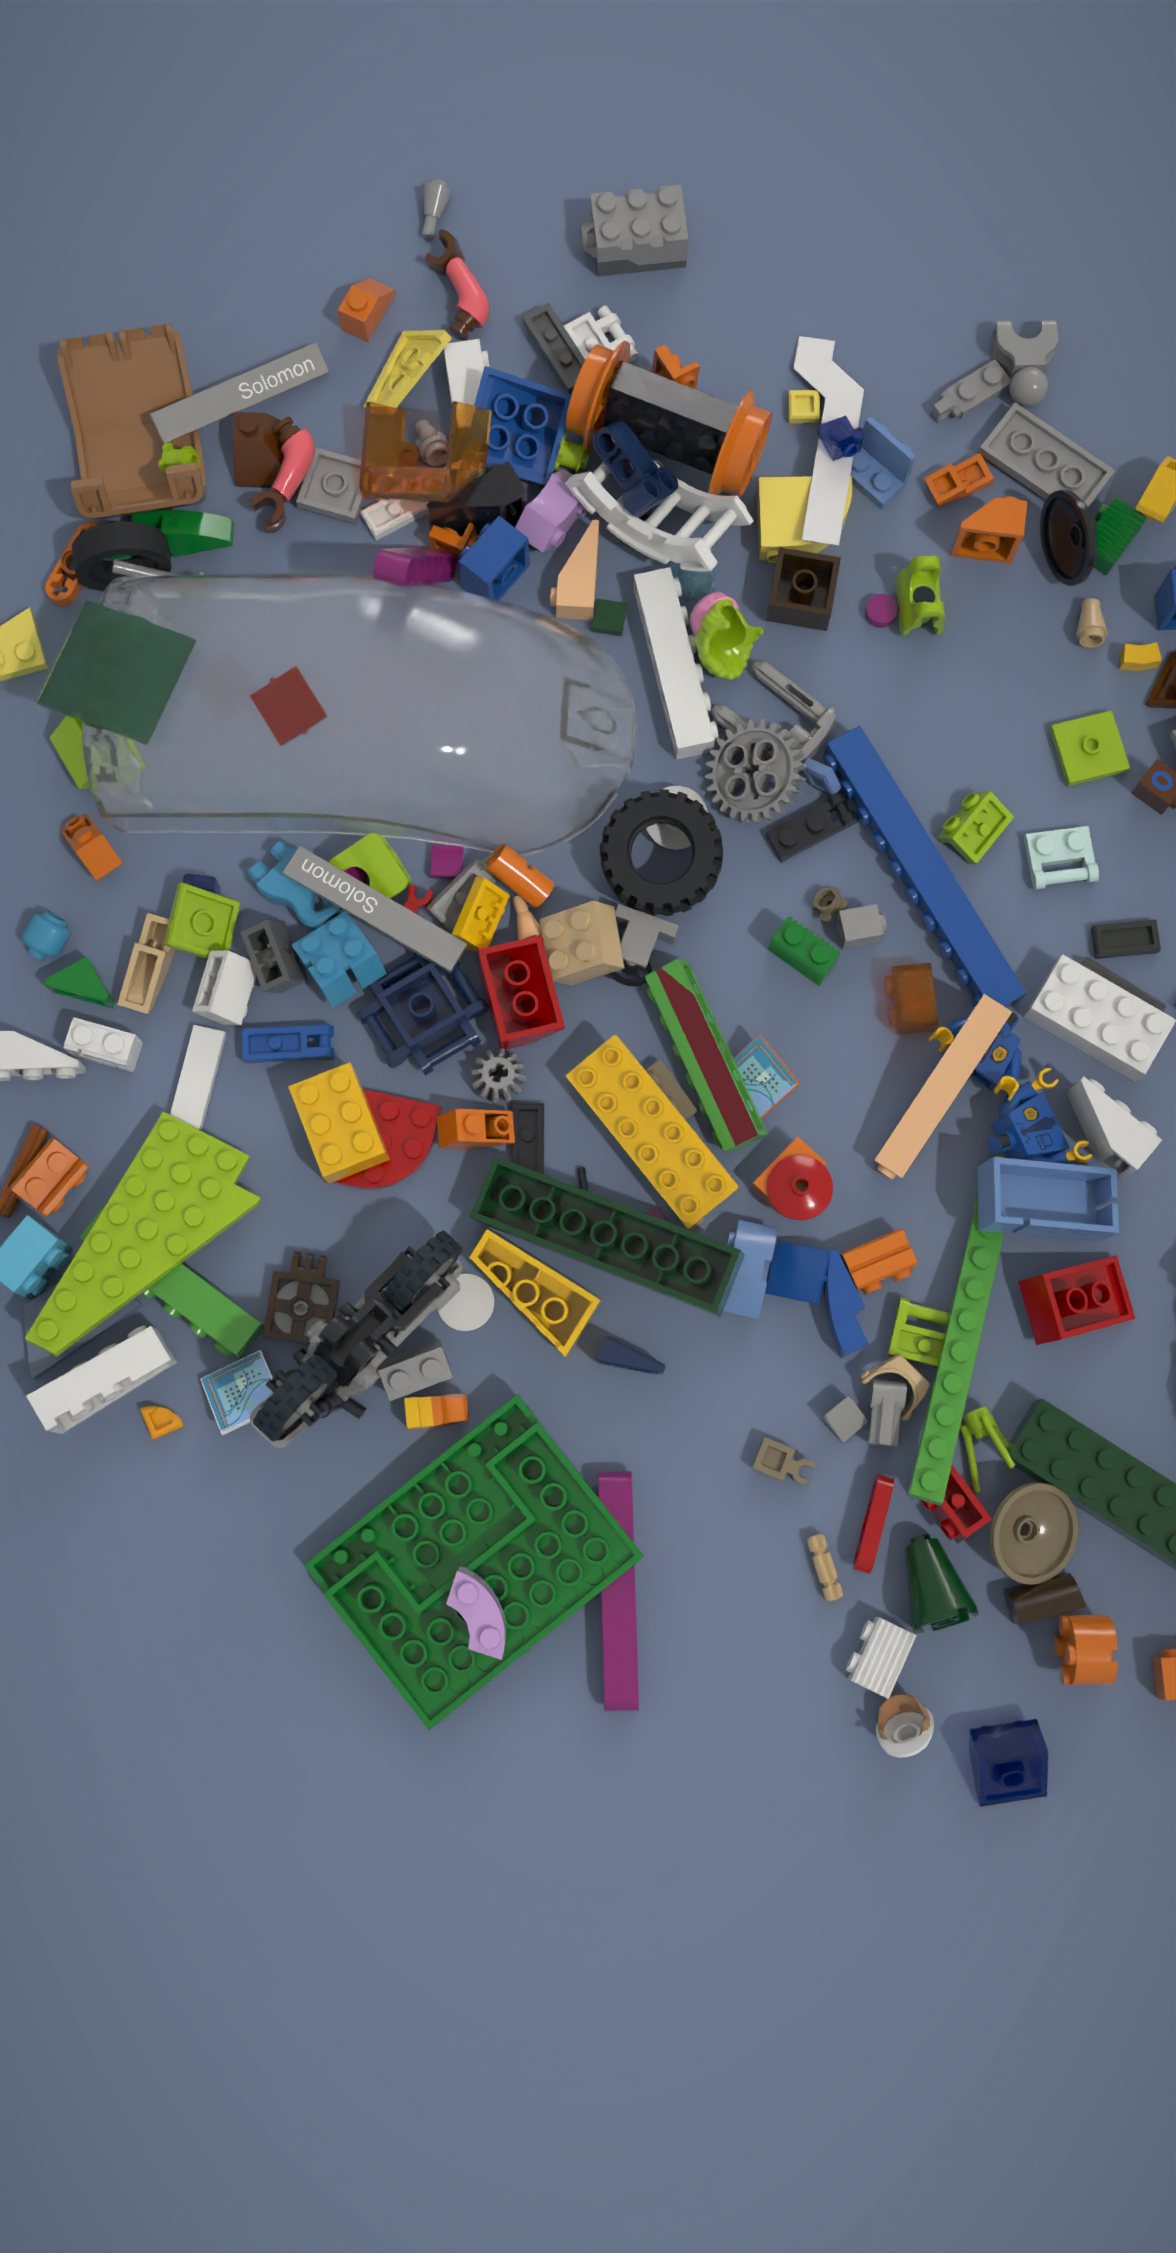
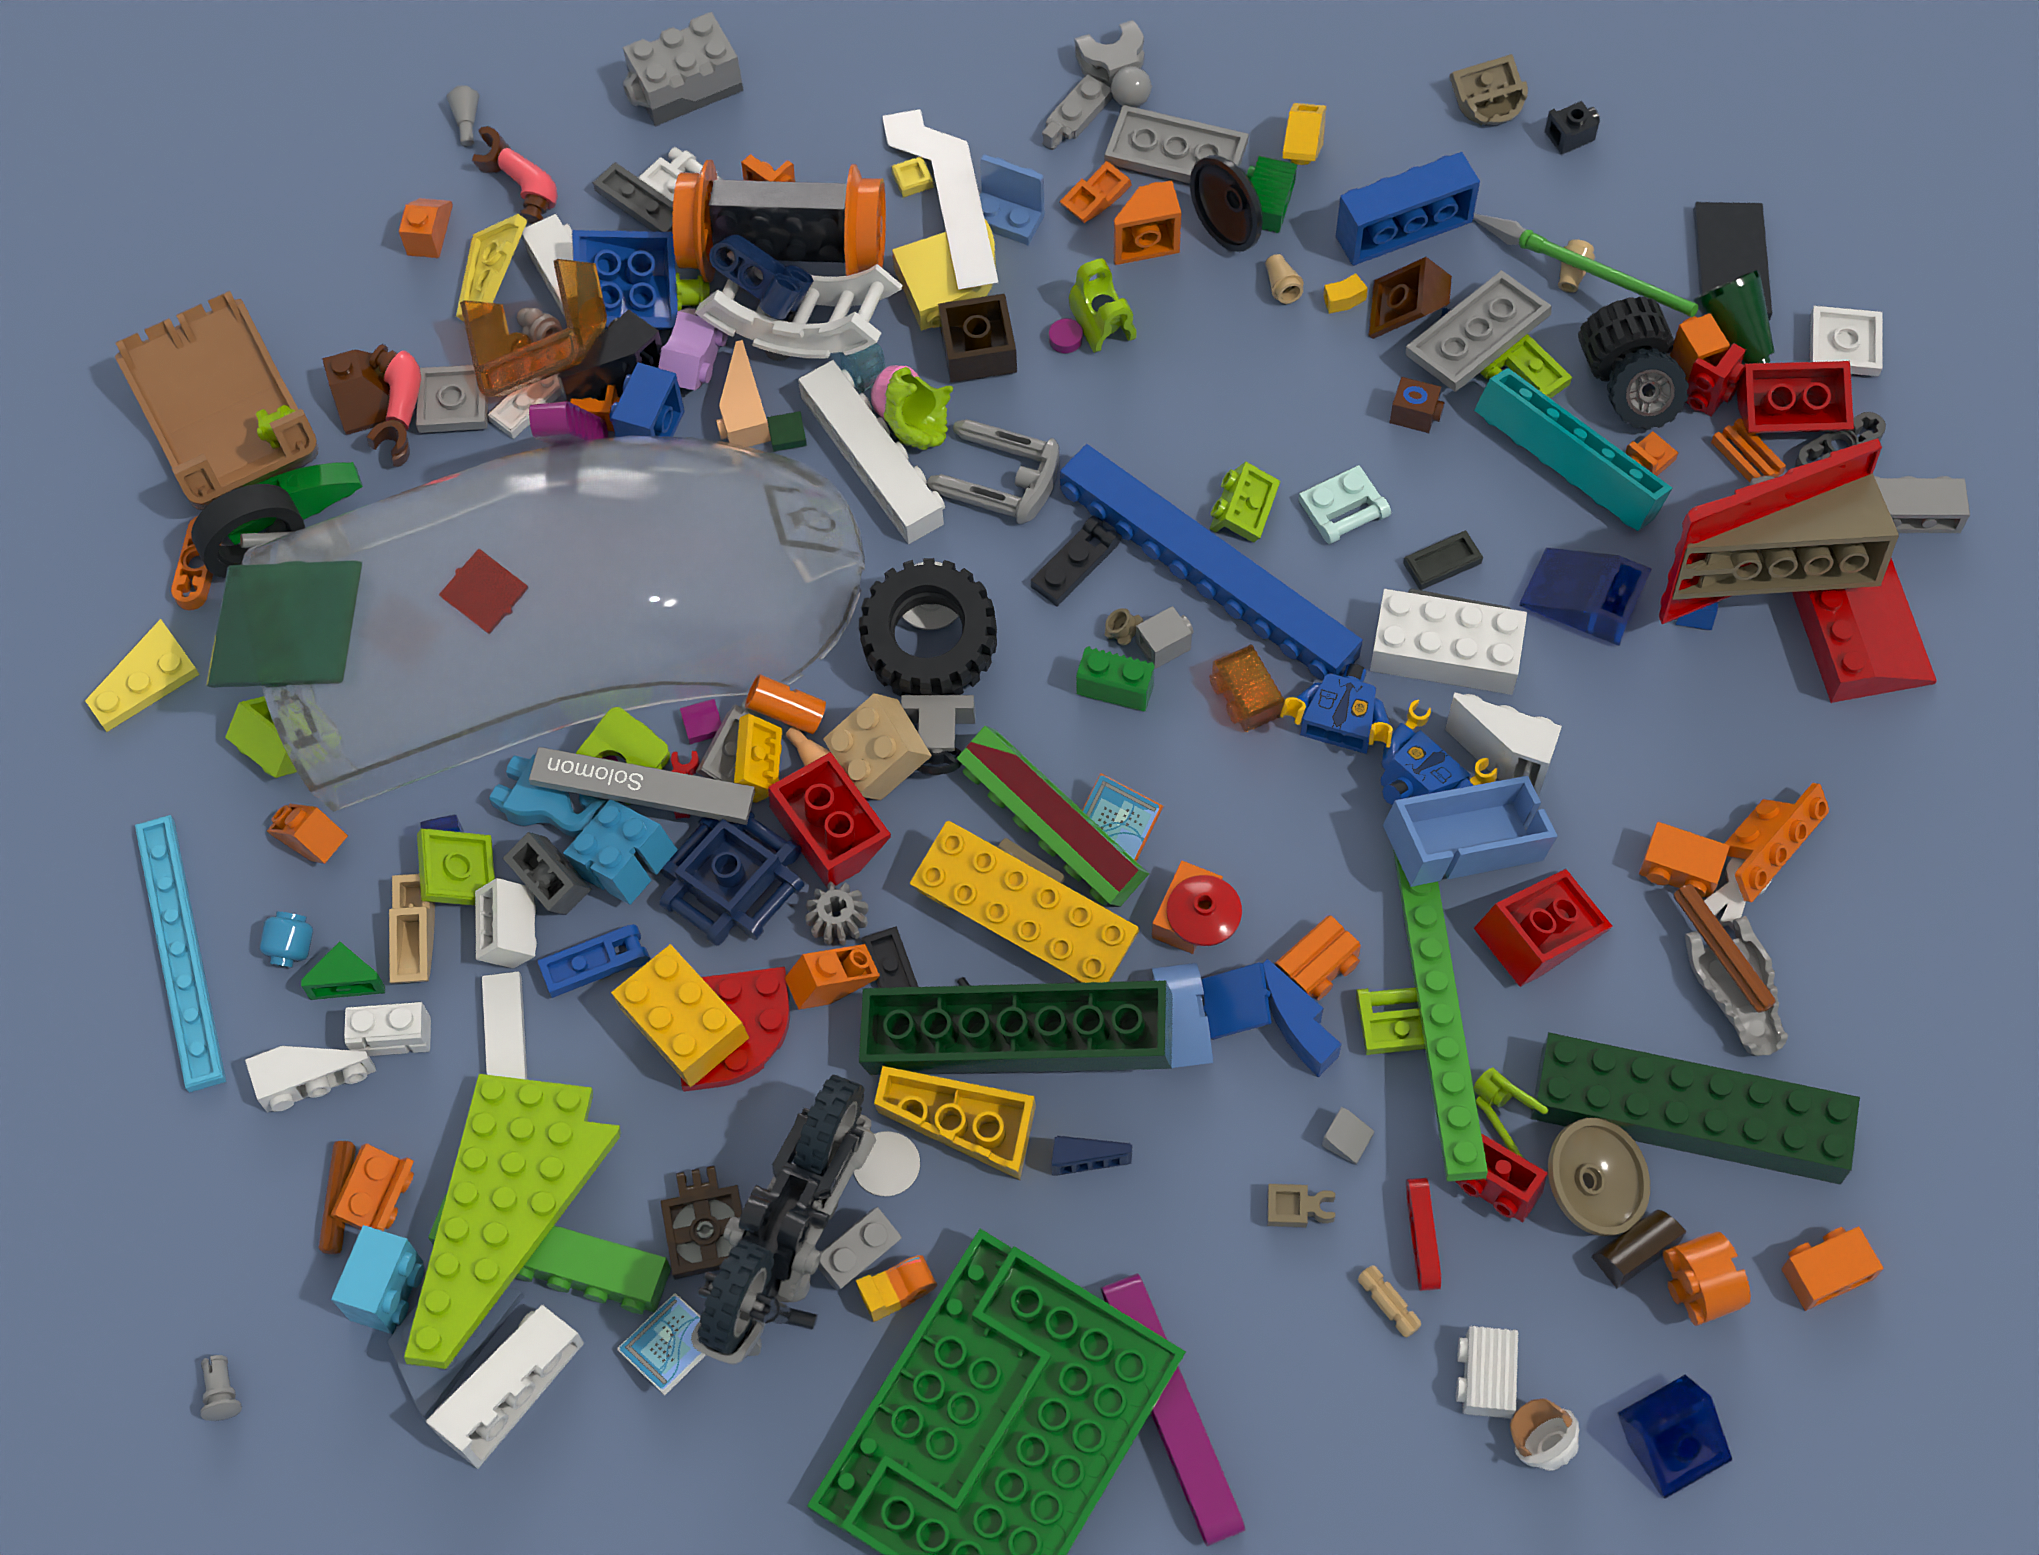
camera: 15 degrees left, 15 degrees down
(161, 1421) = (588, 1412): light orange tile -> none
(238, 393) = (318, 342): light grey tile -> none
(481, 1611) = (1028, 1473): lavender brick -> none
(782, 767) = (1022, 506): light grey gear -> none
(821, 776) = (1066, 506): medium blue tile -> none
(840, 438) = (961, 187): clear blue bracket -> none
(886, 1403) = (1387, 1104): light grey piece -> none
(901, 1366) = (1409, 1067): tan helmet -> none
(935, 1587) = (1519, 1276): dark green cone -> none
(942, 1087) = (1313, 759): light nougat brick -> none
(1089, 748) = (1330, 394): lime plate -> none

